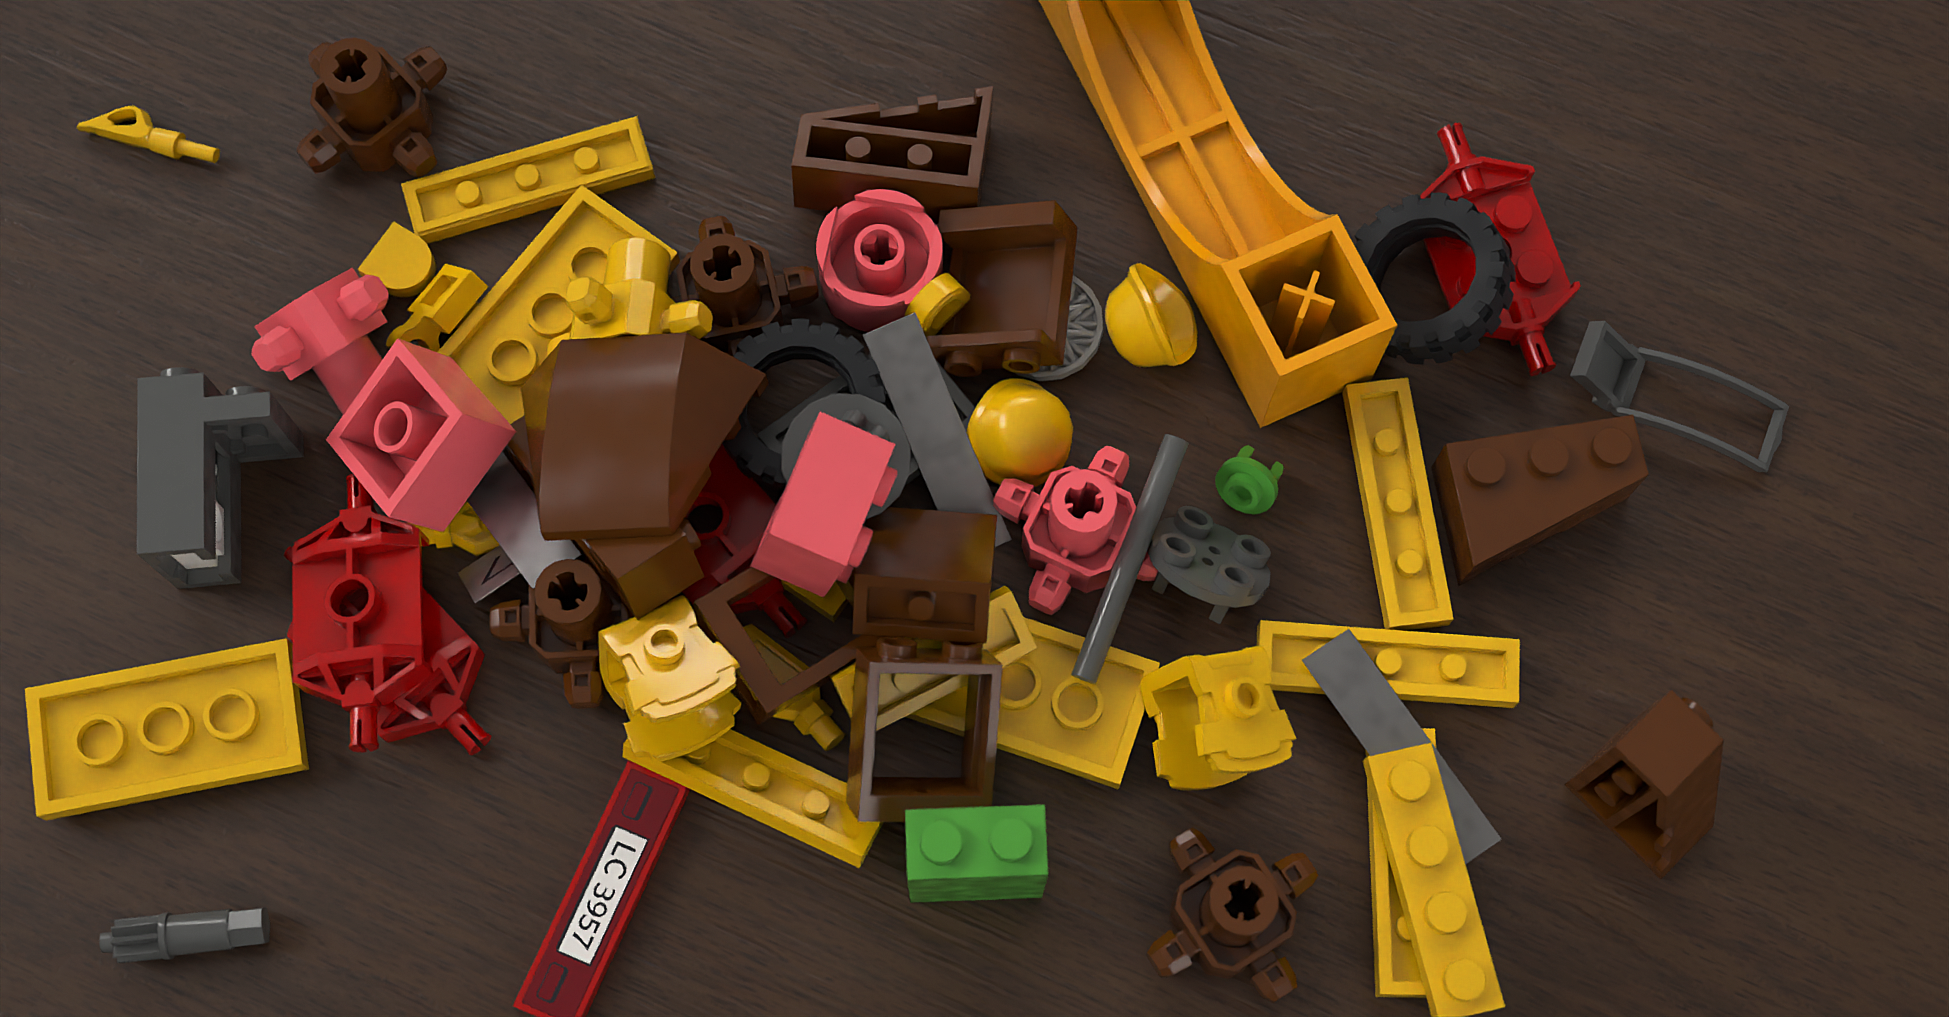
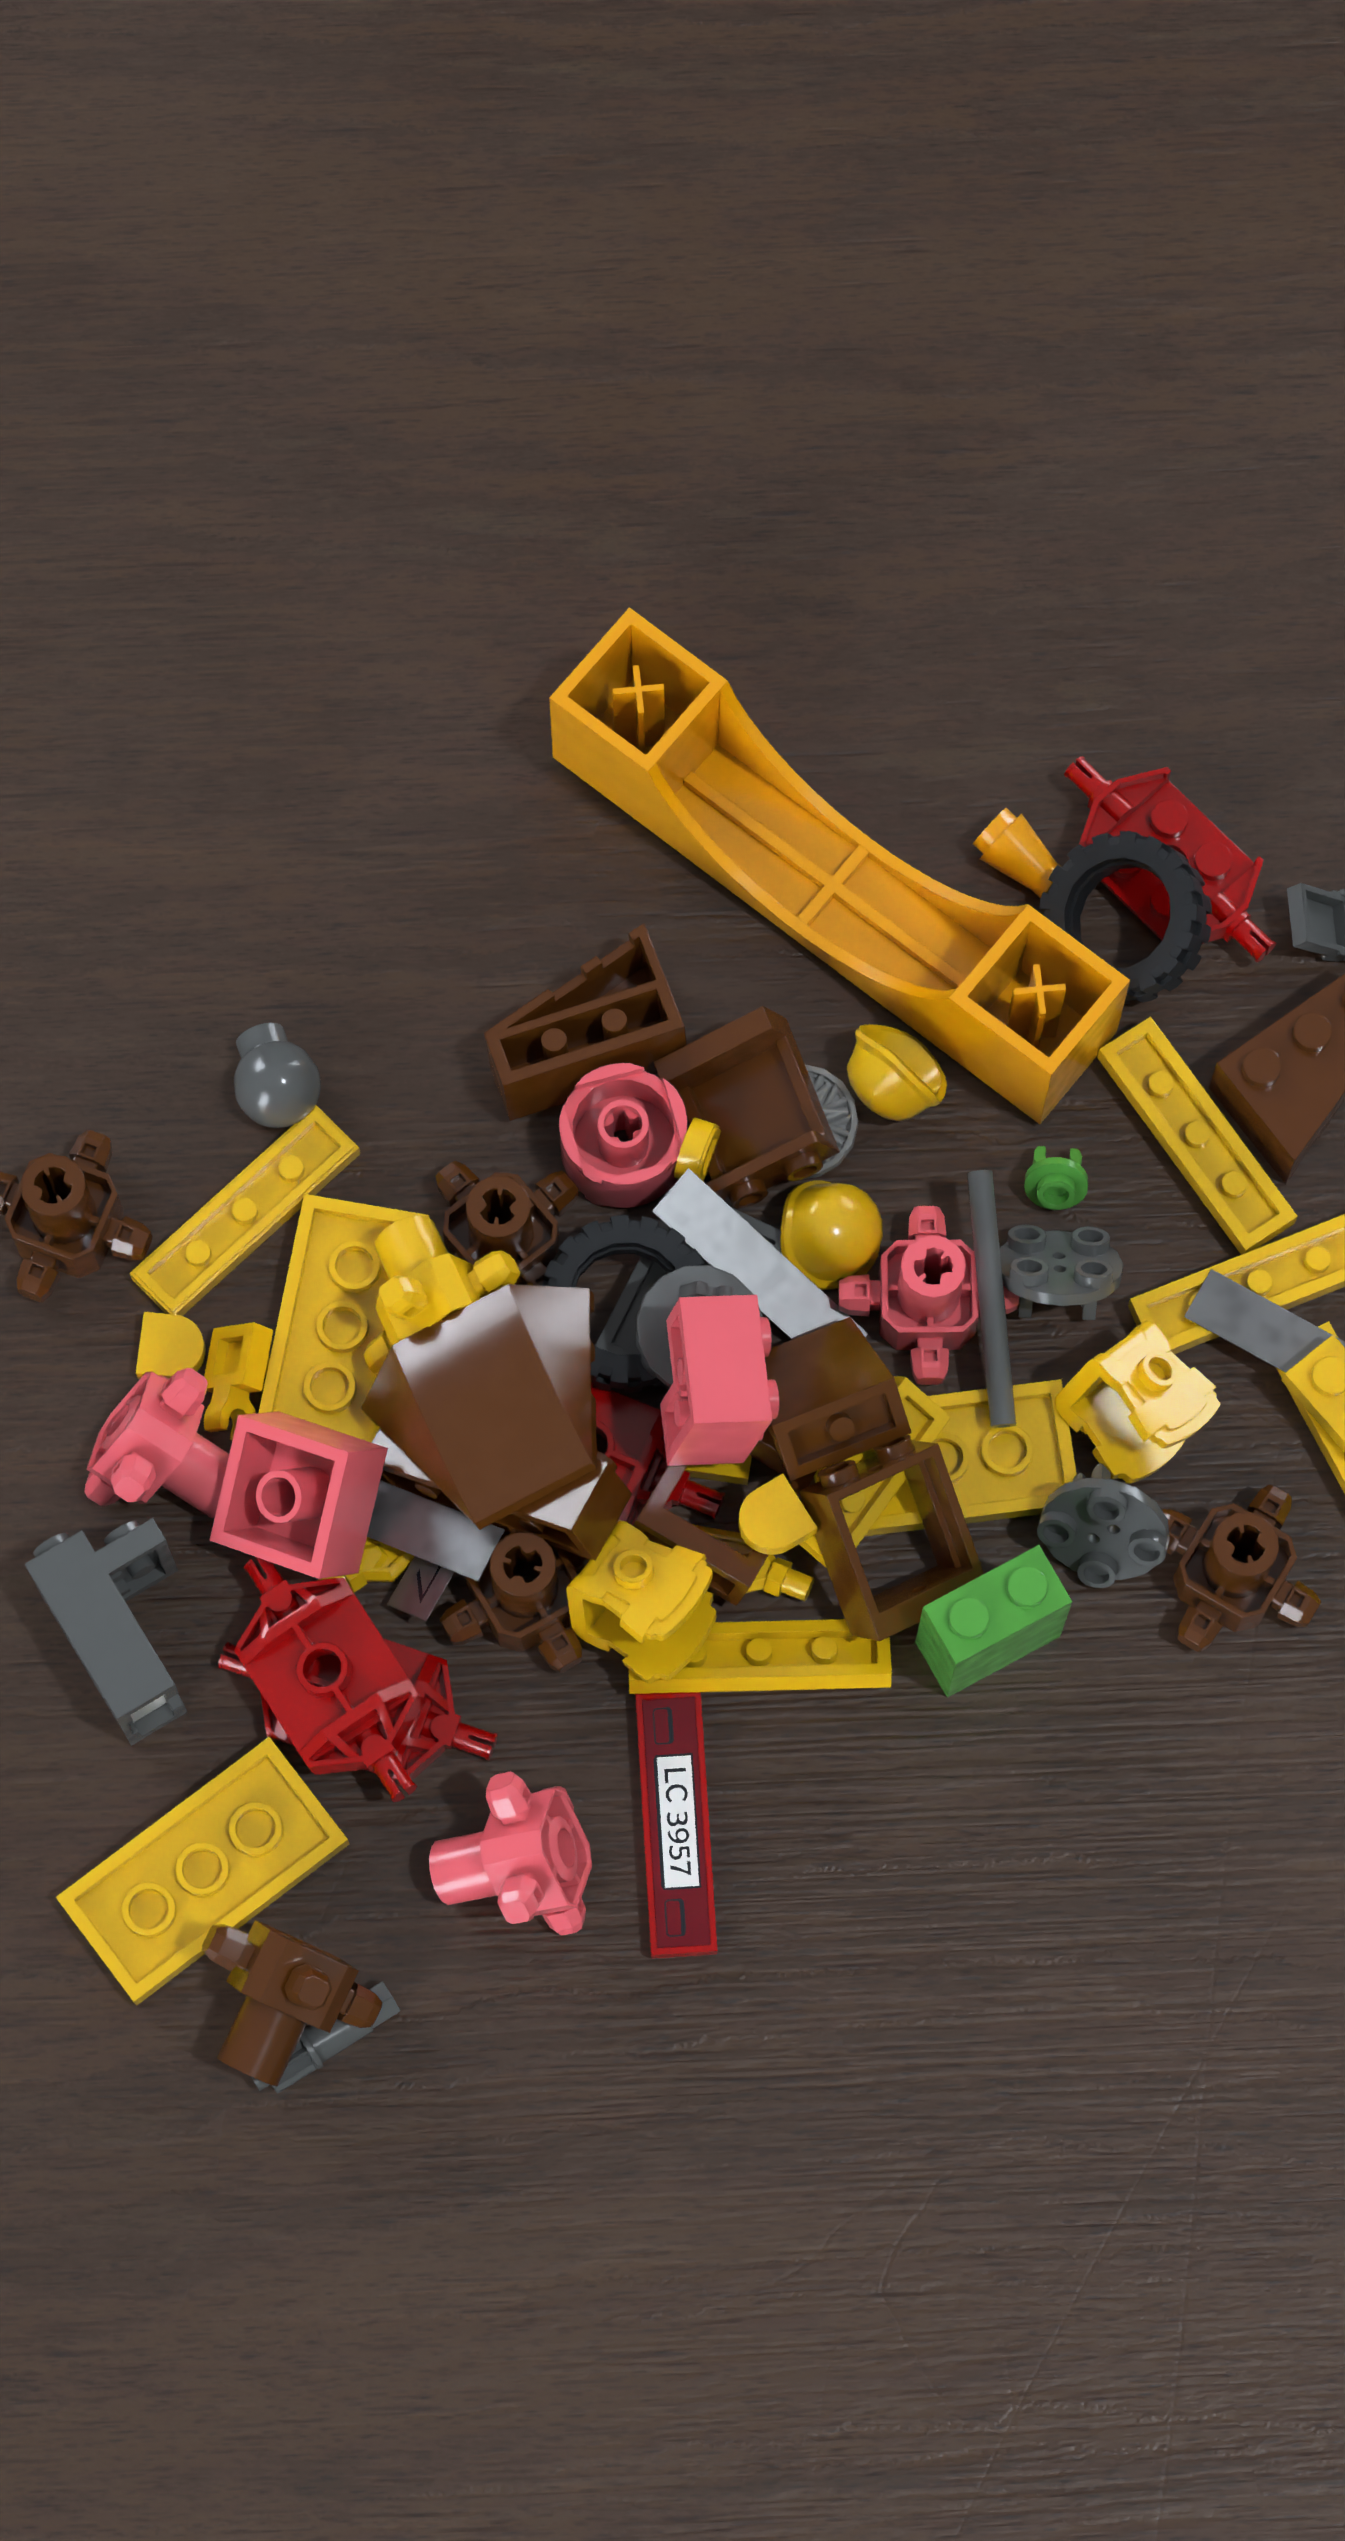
camera: 25 degrees left, 0 degrees up
(154, 872) = (285, 1990): none -> reddish brown piece
(440, 861) = (526, 1856): none -> coral piece
(612, 76) = (274, 1078): none -> dark grey piece
(820, 660) = (774, 1518): none -> yellow tile
(1126, 818) = (1104, 1529): none -> dark grey plate
(1359, 178) = (1017, 851): none -> light orange cone

